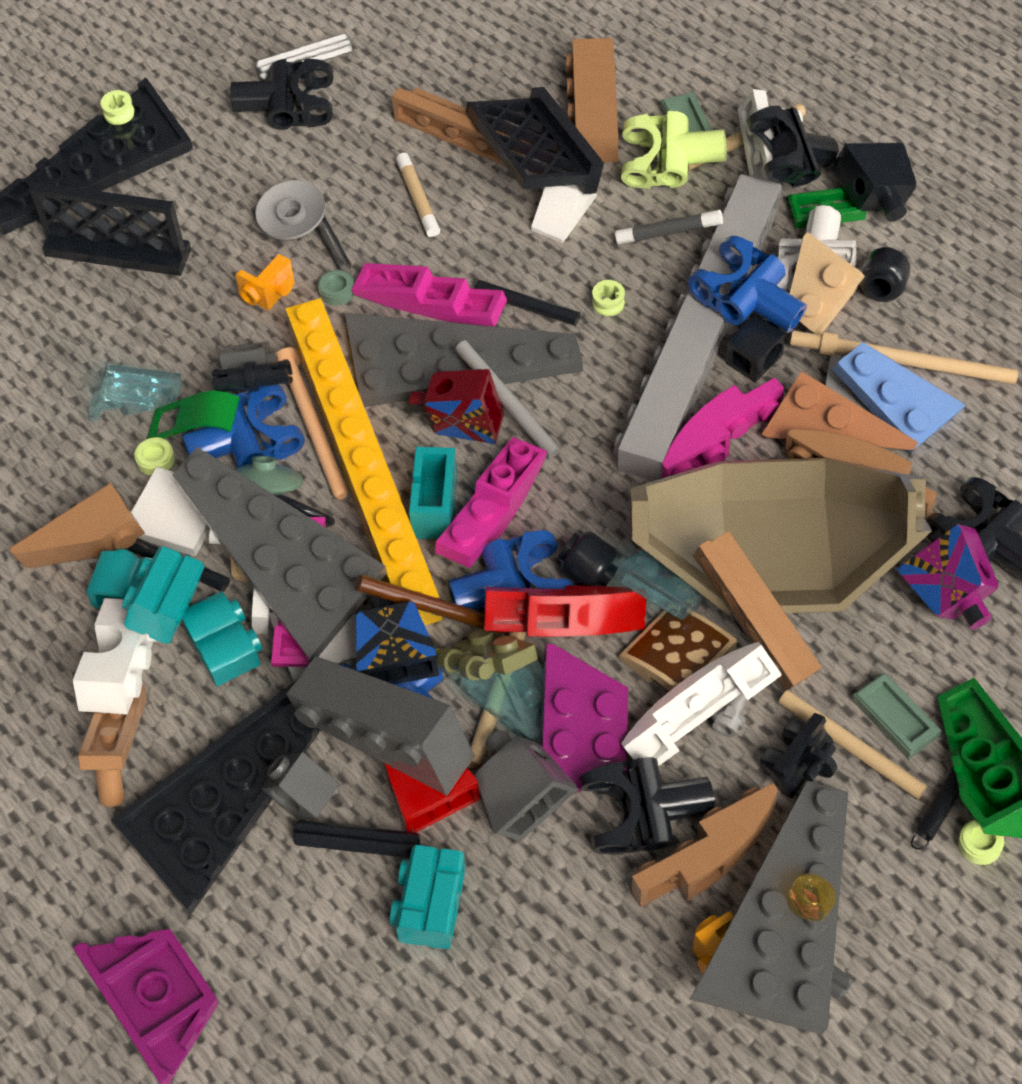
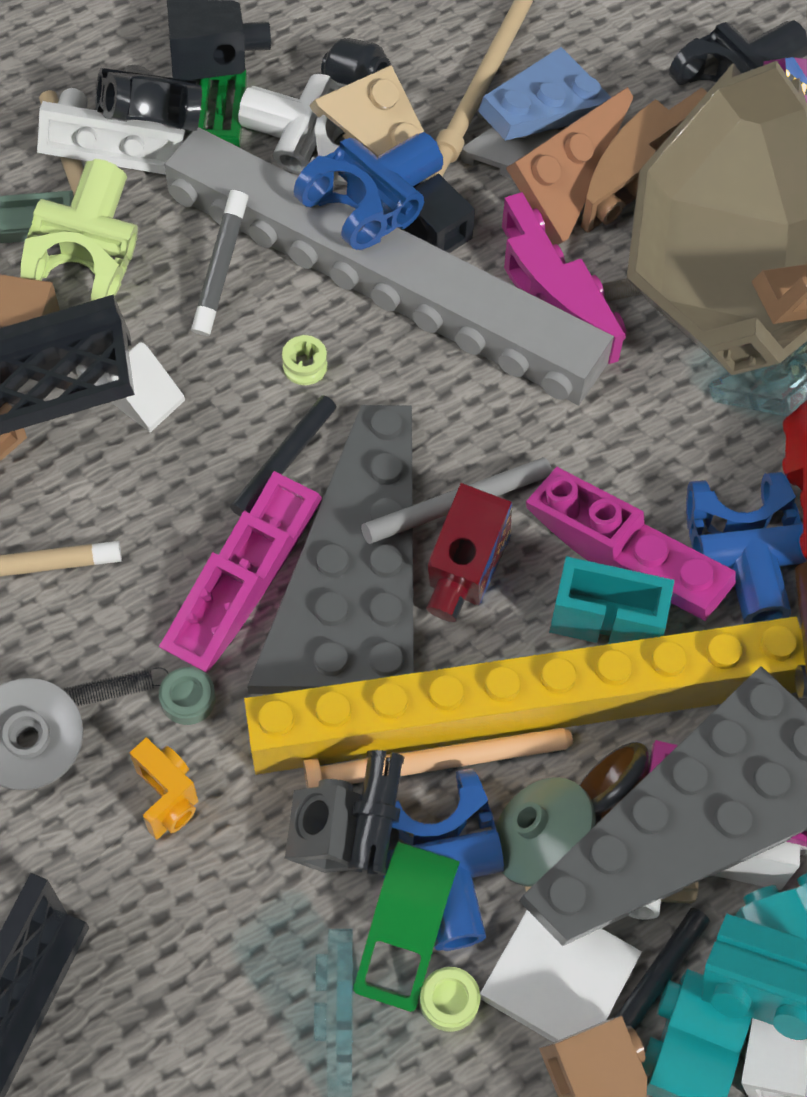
camera: 85 degrees left, 5 degrees up
(588, 560) = (732, 451): black head -> none

